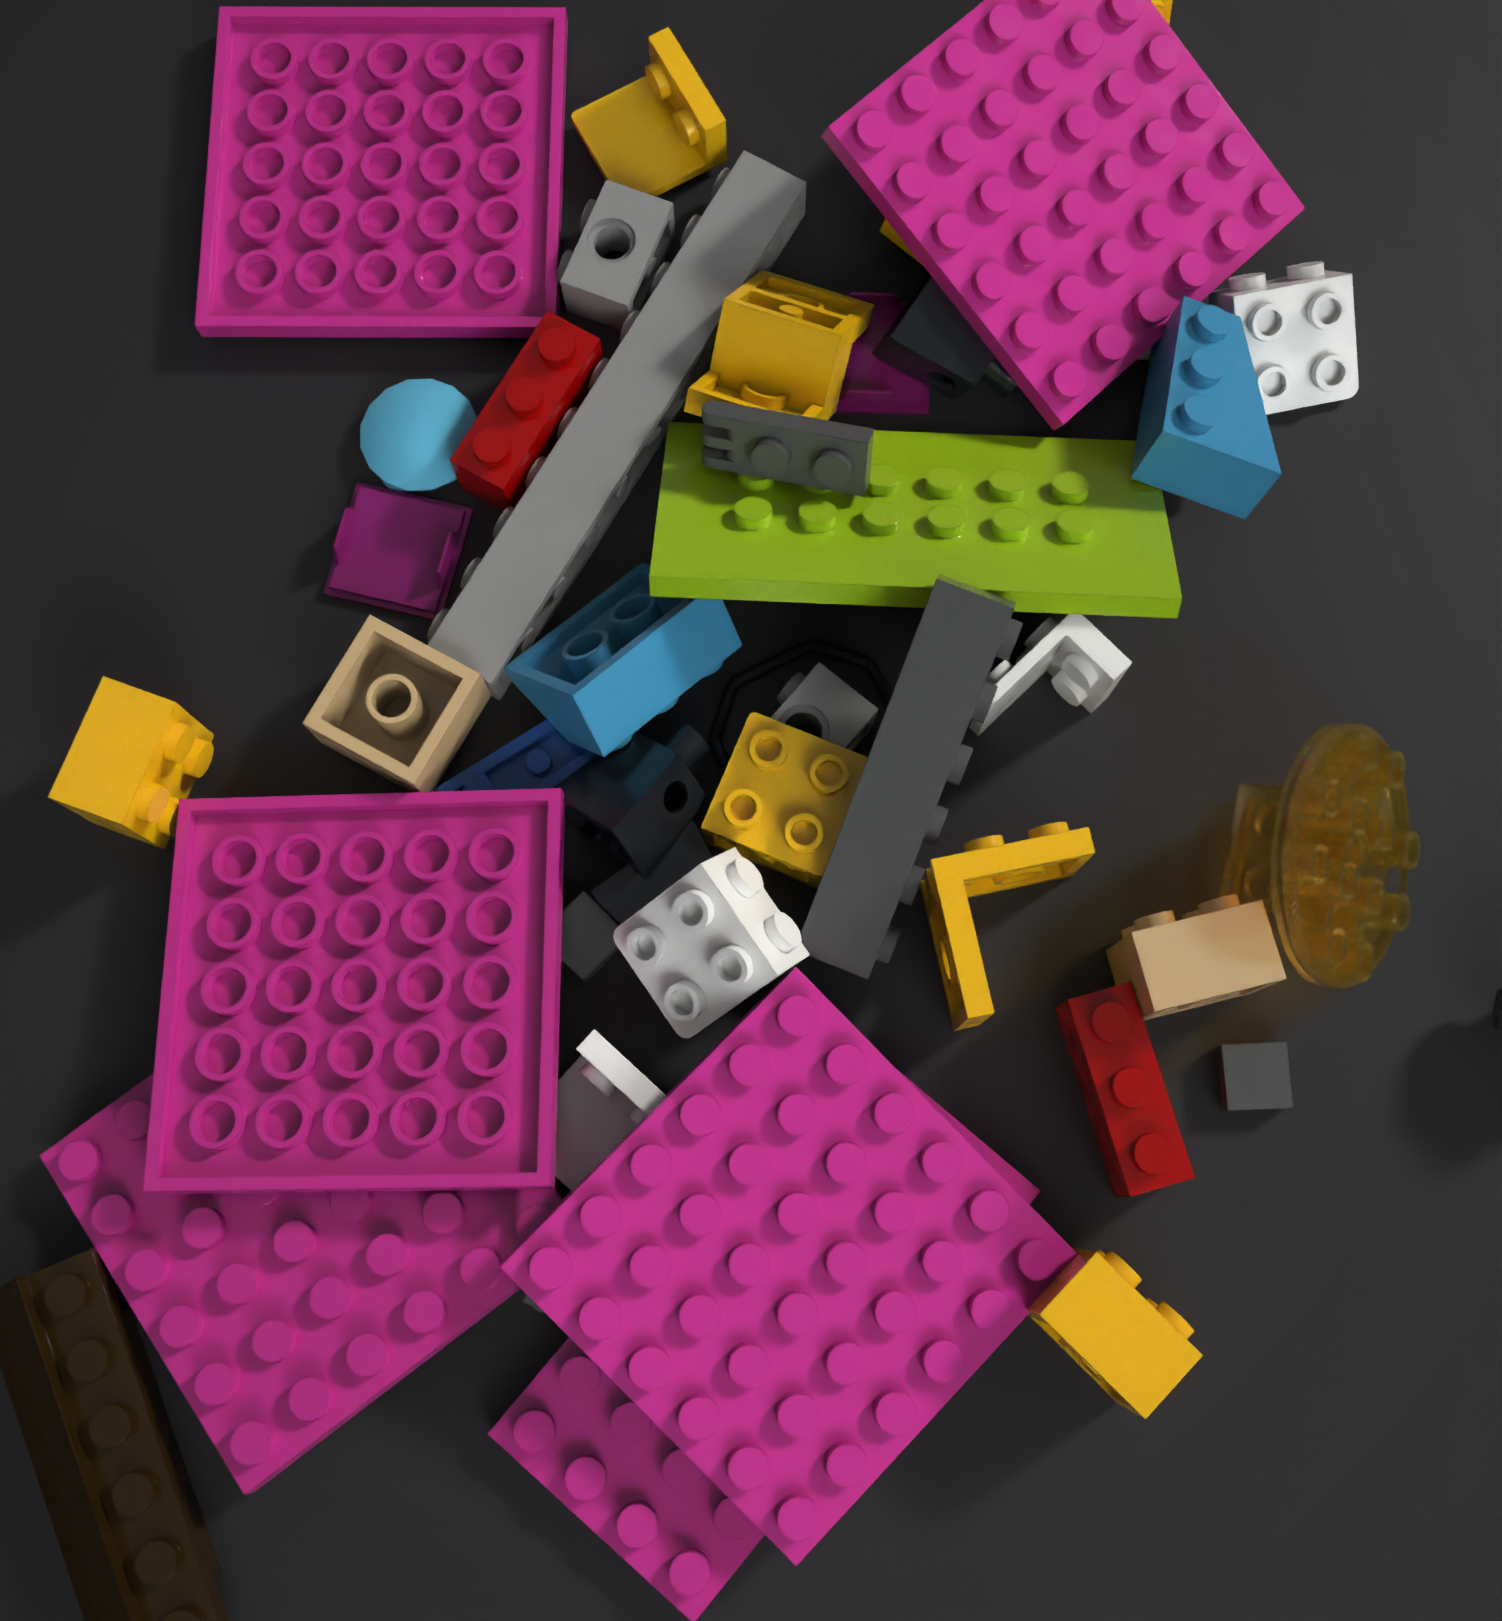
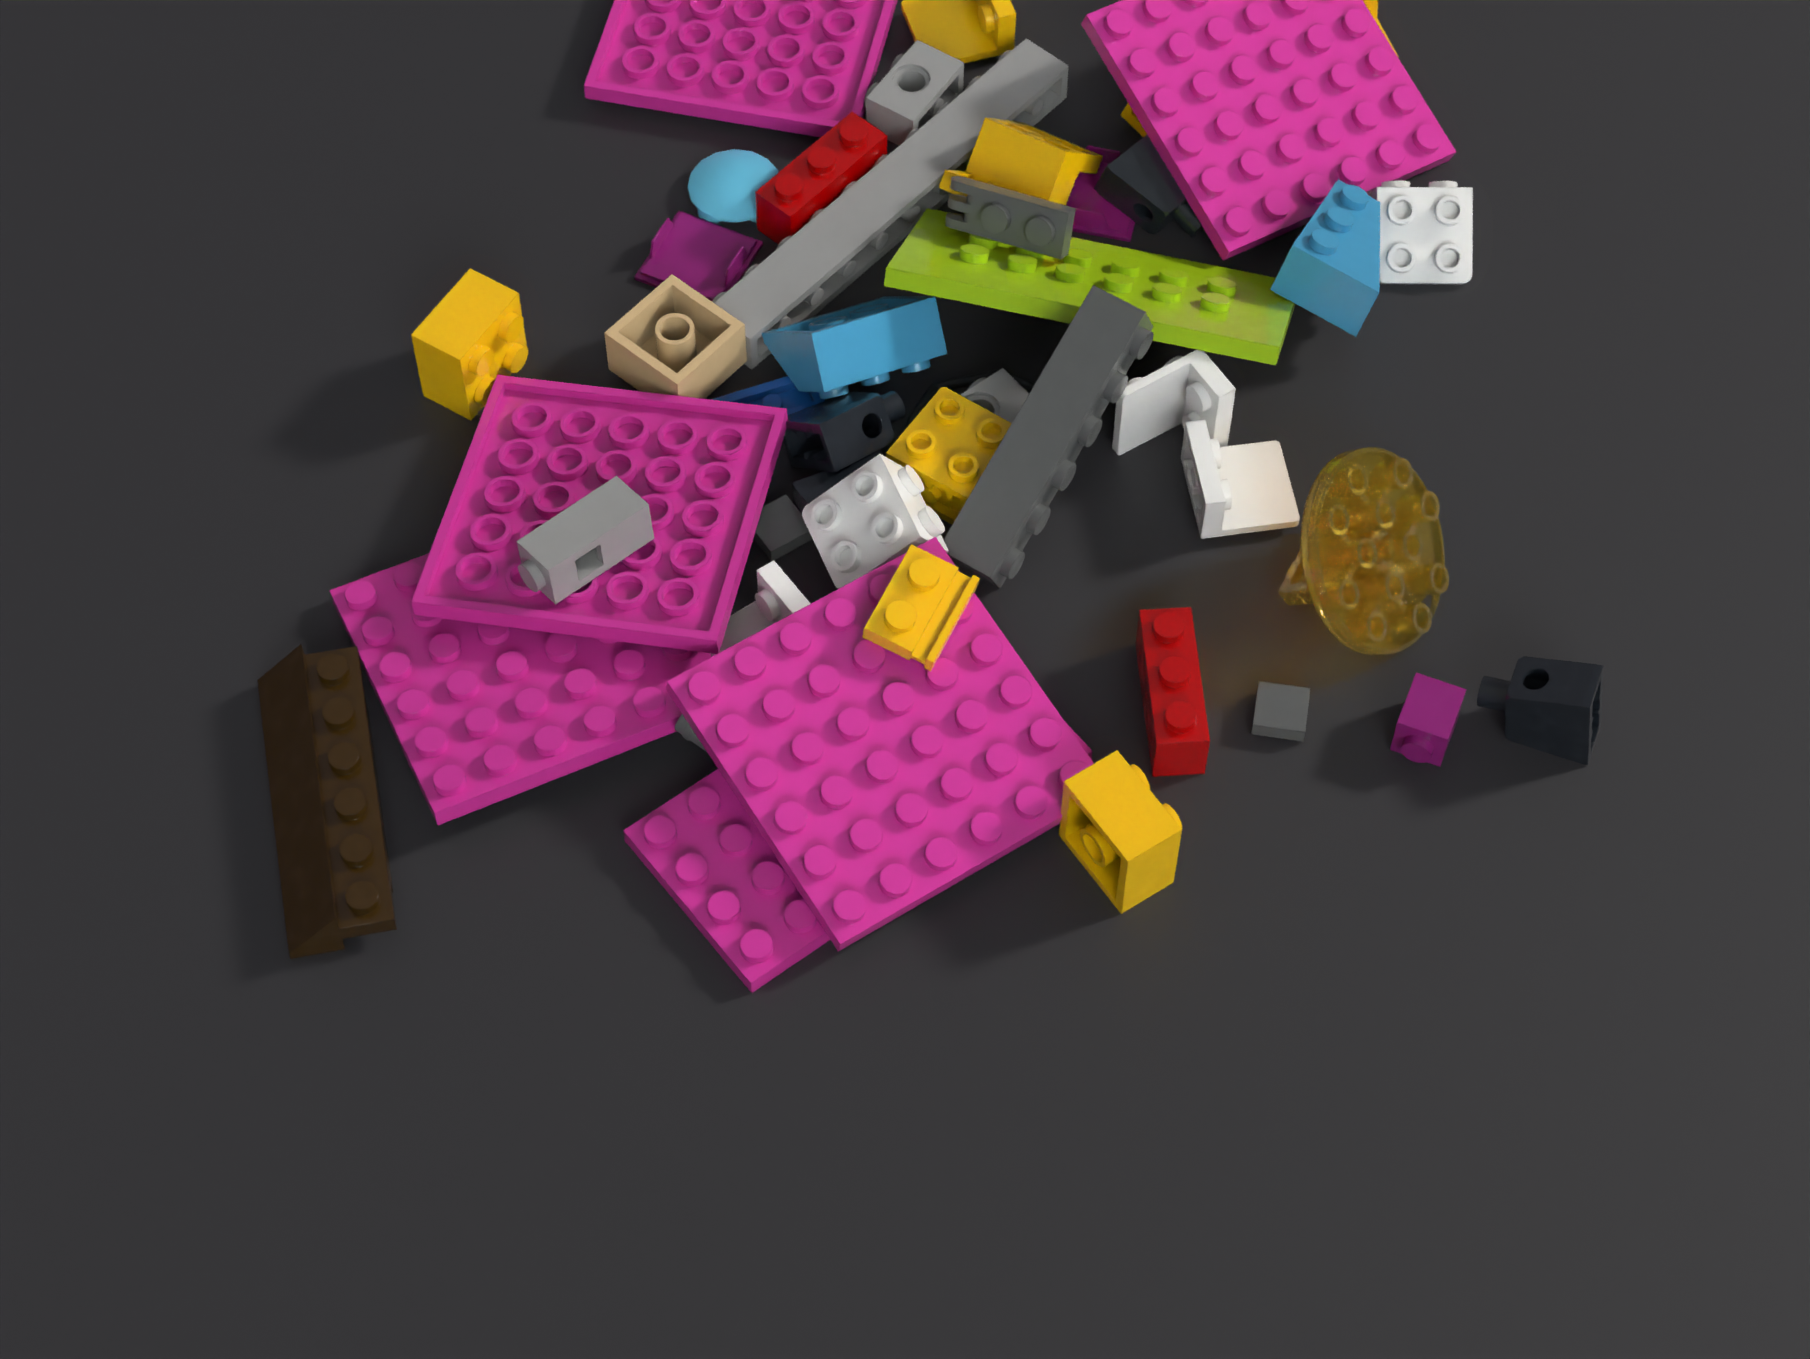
camera: 10 degrees right, 20 degrees down
(343, 1075) = (584, 540): none -> light grey brick
(802, 1088) = (920, 607): none -> yellow plate
(980, 870) = (1089, 527): yellow bracket -> none
(1139, 761) = (1236, 485): none -> white bracket
(1198, 960) = (1246, 607): tan brick -> none
(1440, 1063) = (1427, 720): none -> magenta brick

